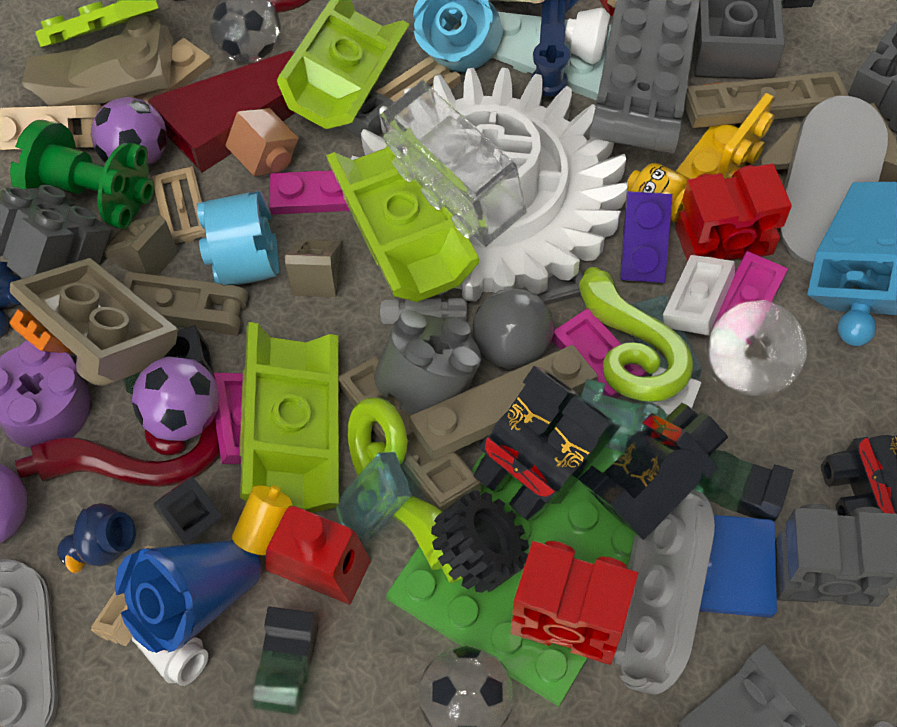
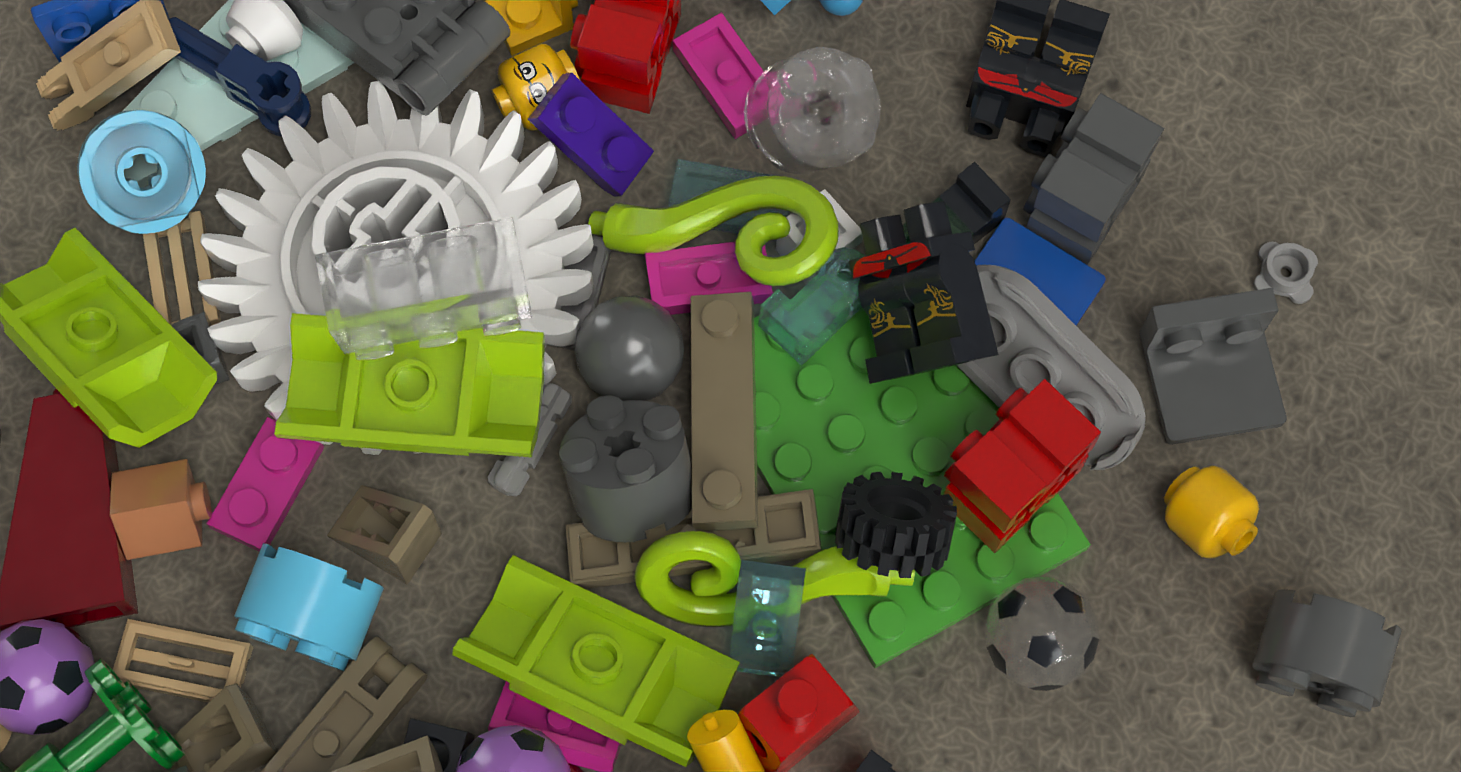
camera: 65 degrees left, 10 degrees up
(543, 443) = (823, 414): black hips -> none
(699, 294) = (705, 124): white plate -> none

